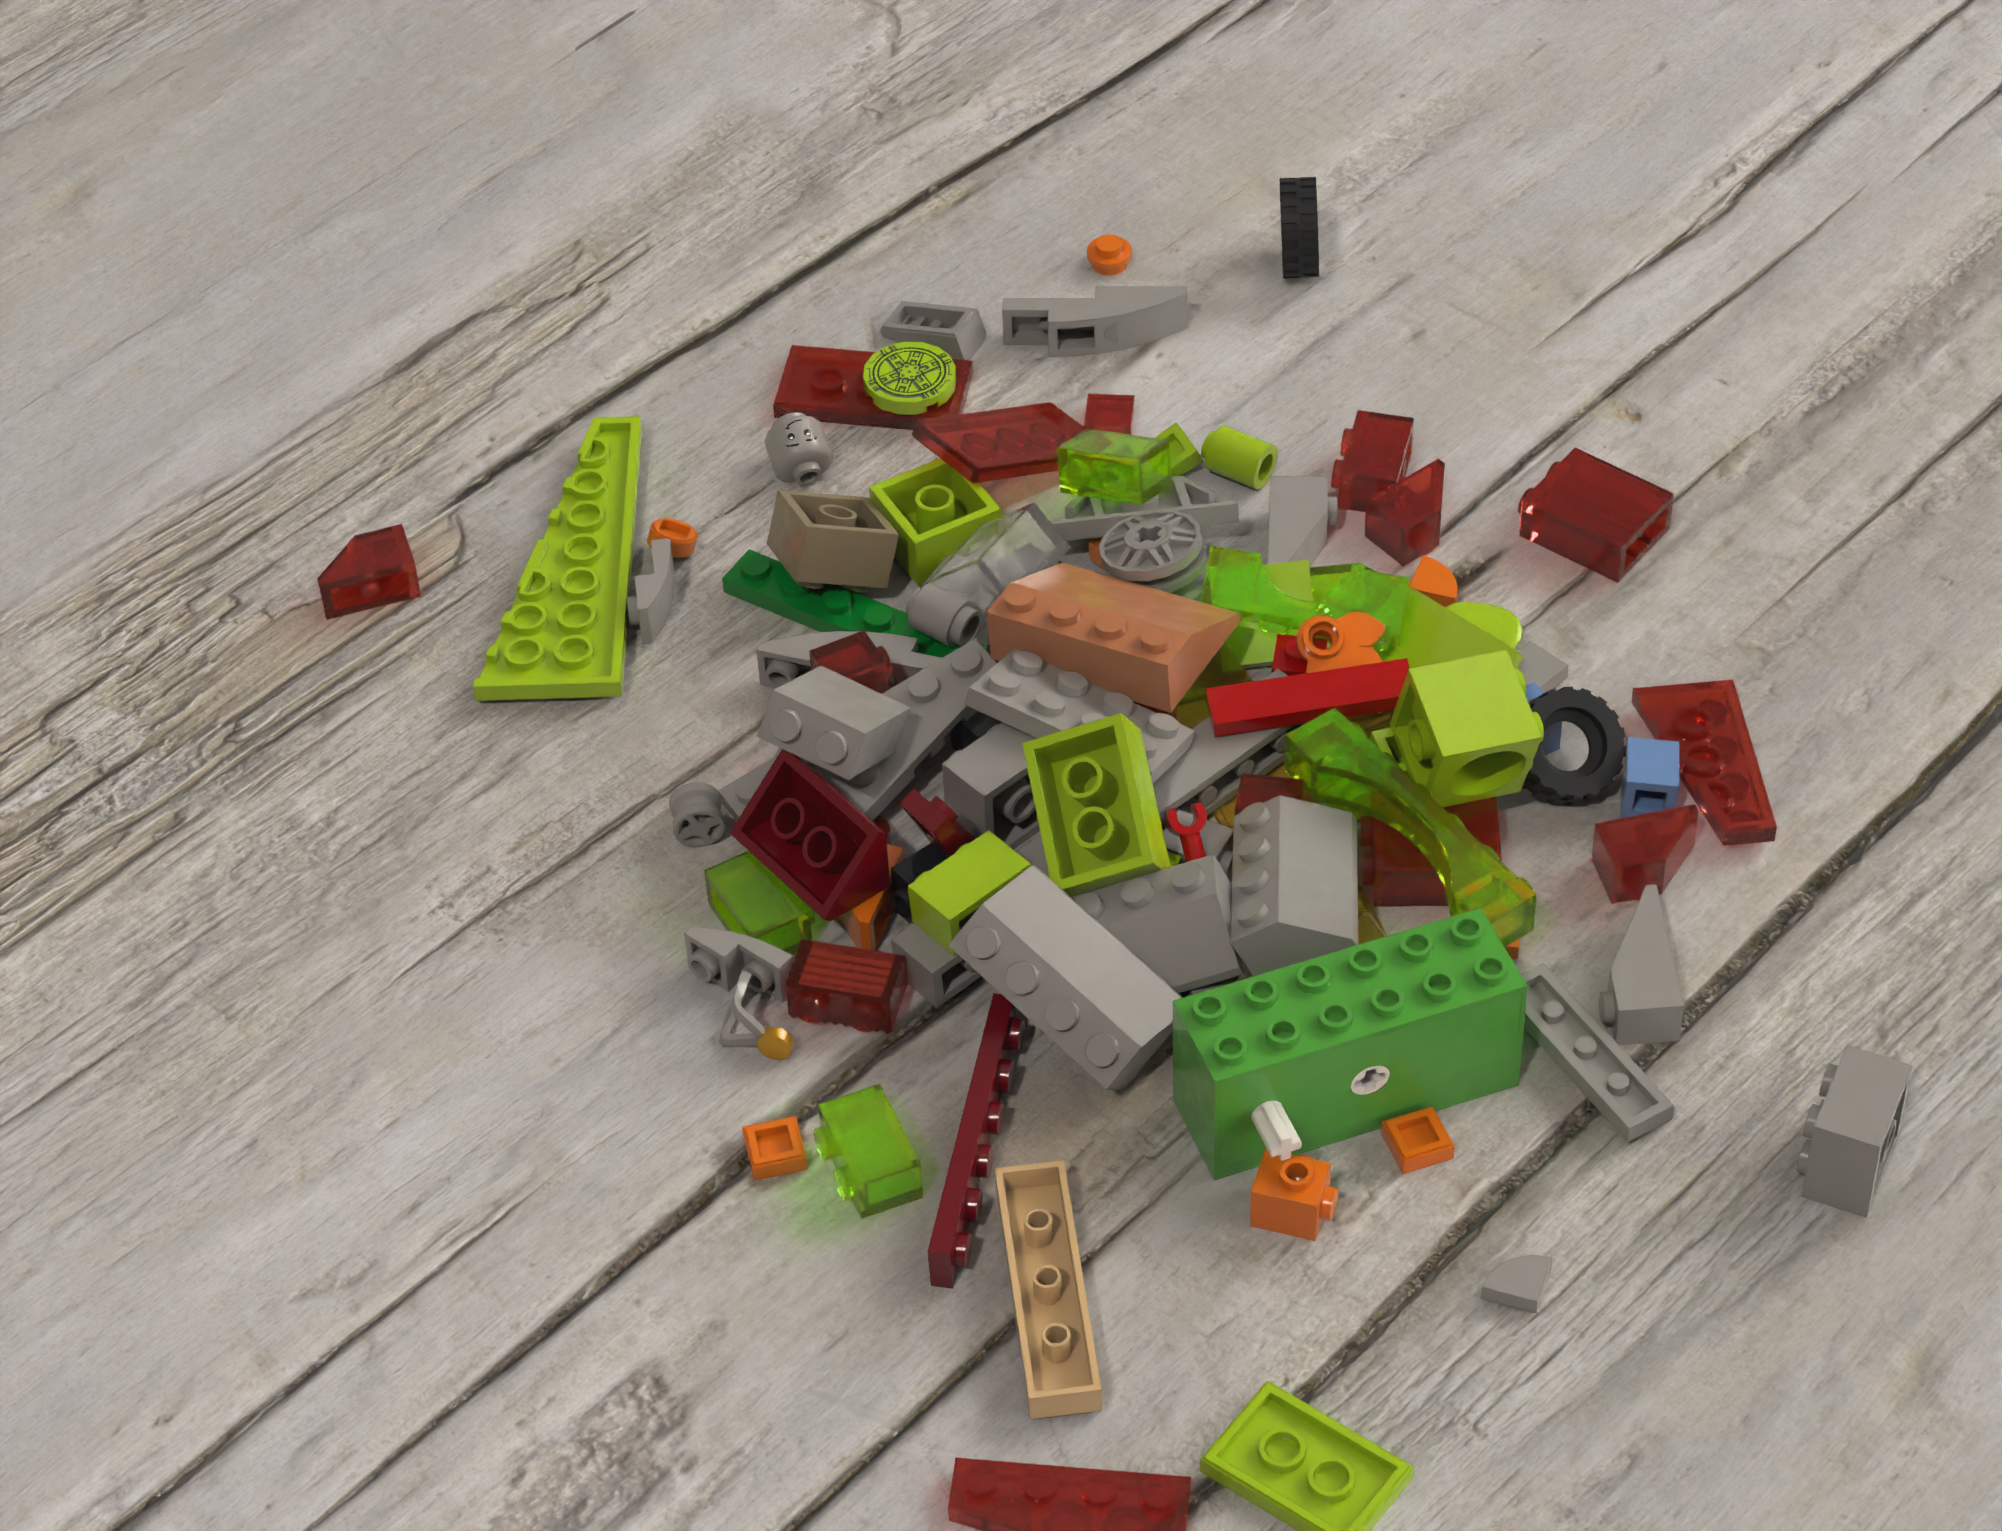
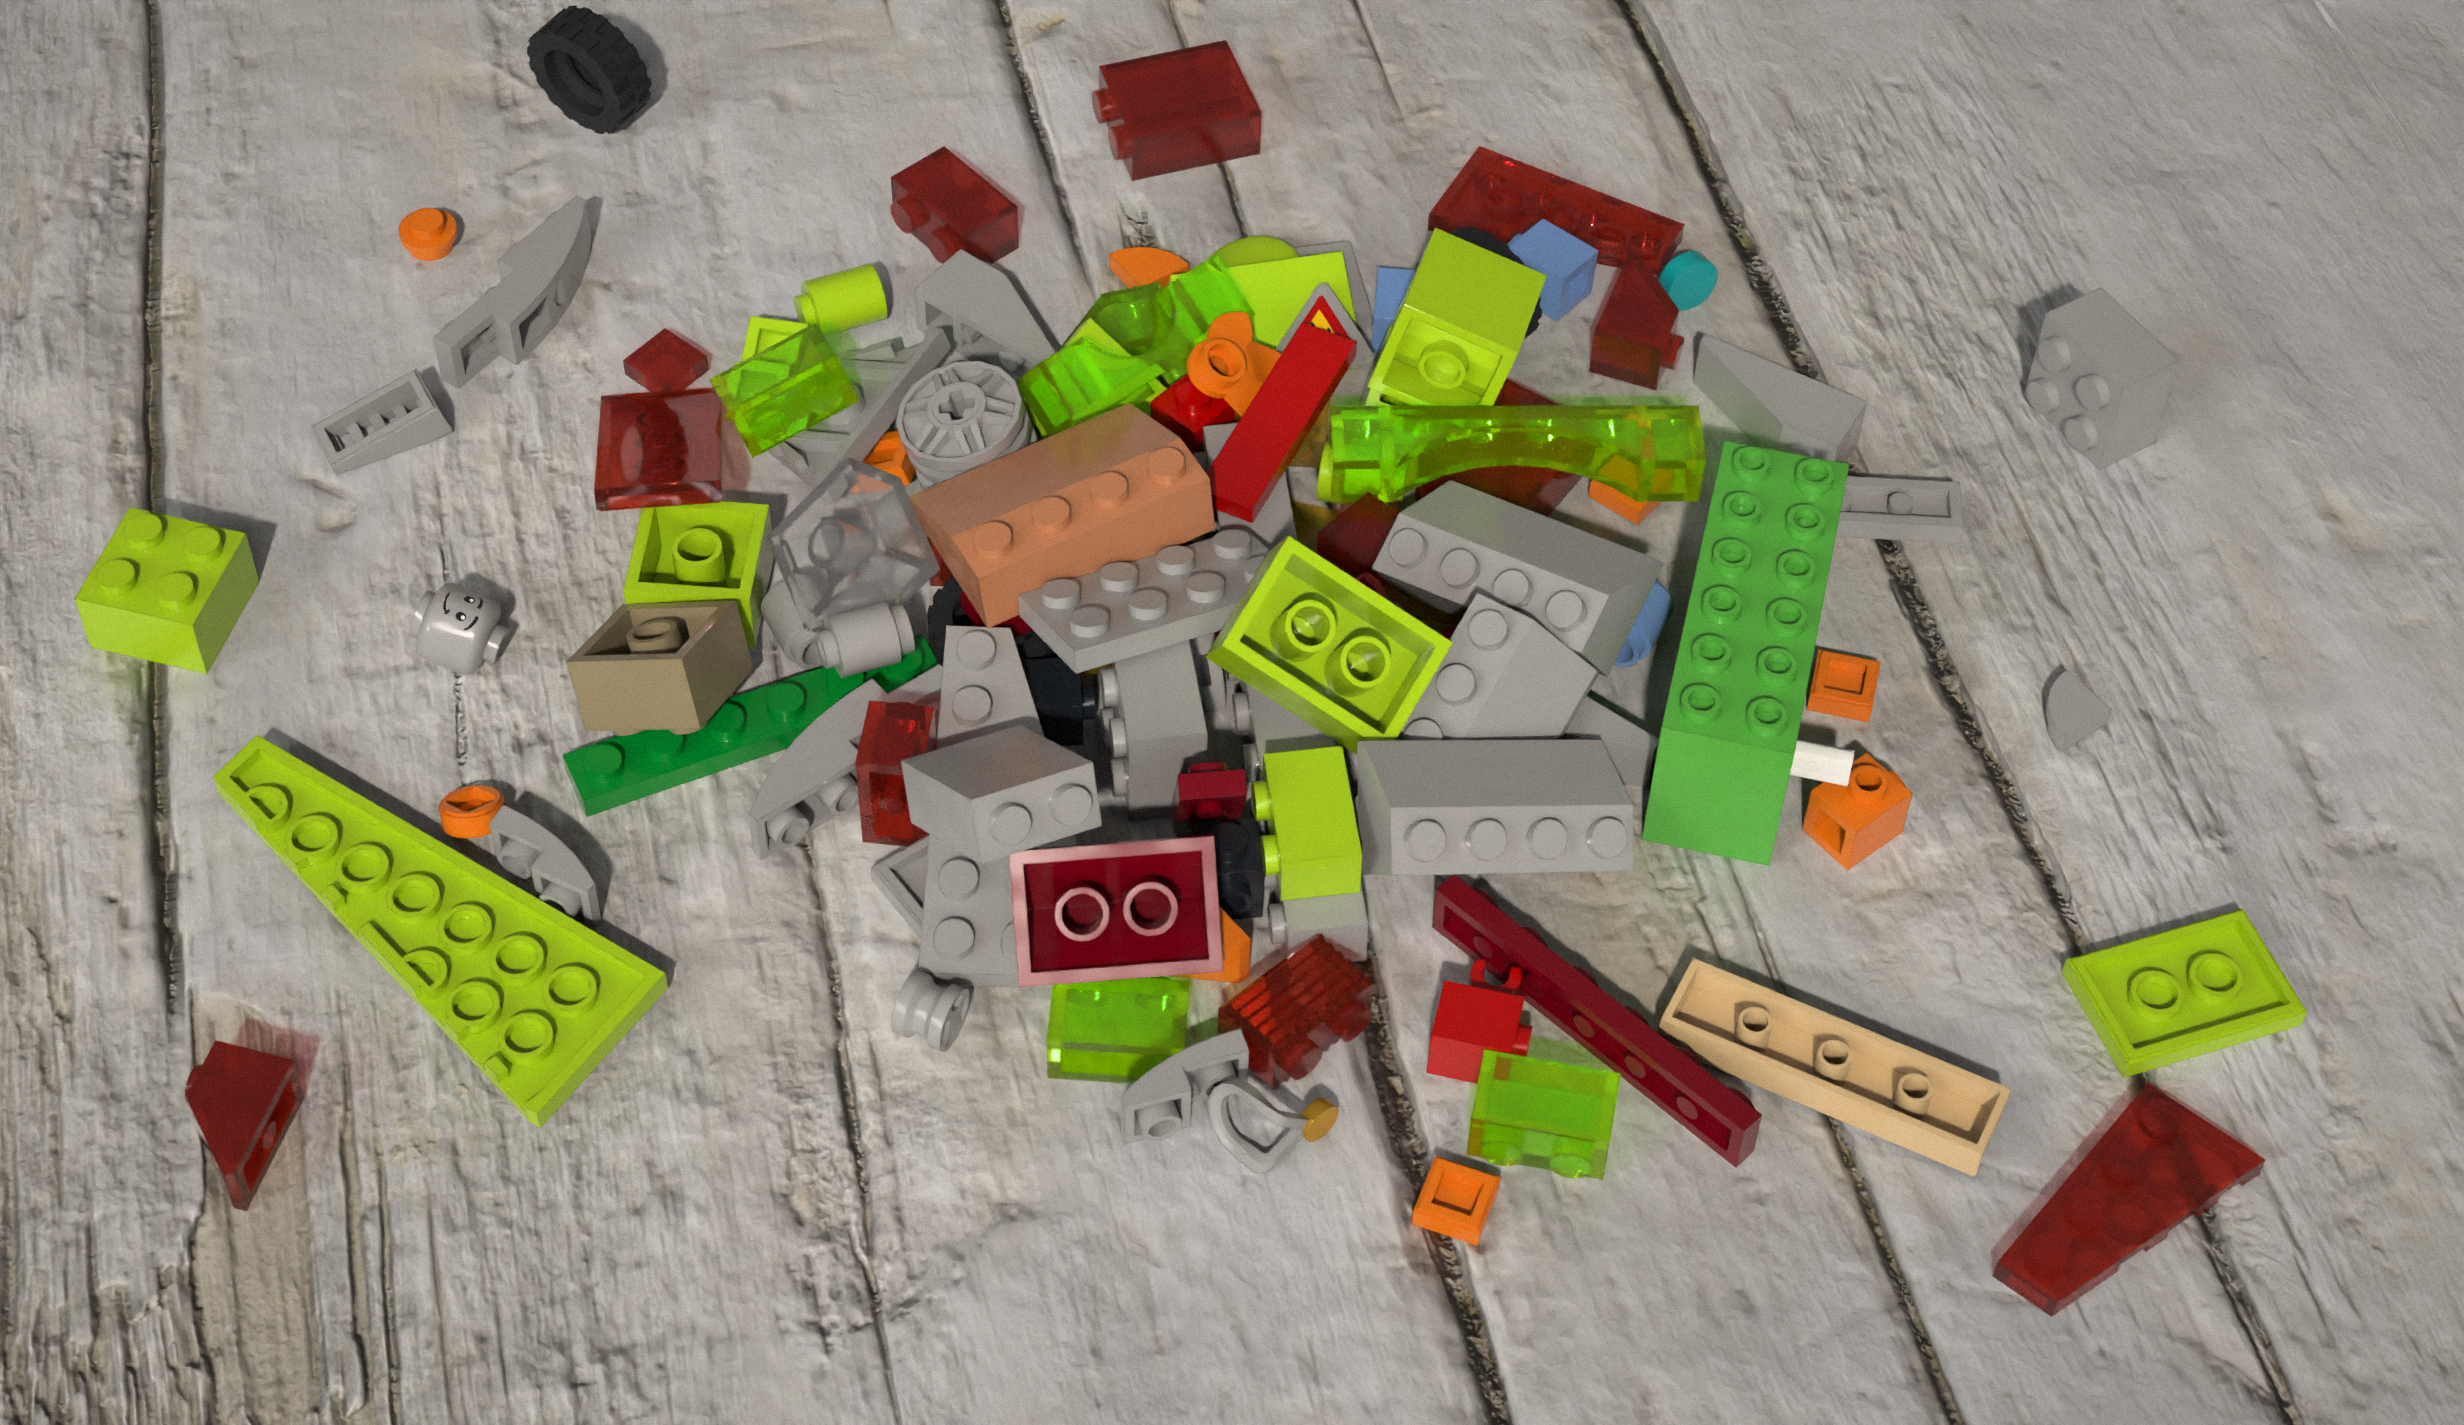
camera: 60 degrees left, 5 degrees up
(712, 318) = (167, 590): none -> lime brick
(831, 389) = (415, 525): clear red tile -> none
(909, 377) = (453, 479): lime tile -> none
(916, 1082) = (1475, 1020): none -> red brick
(1408, 514) = (1054, 229): clear red slope -> none
(1725, 859) = (1689, 279): none -> teal tile

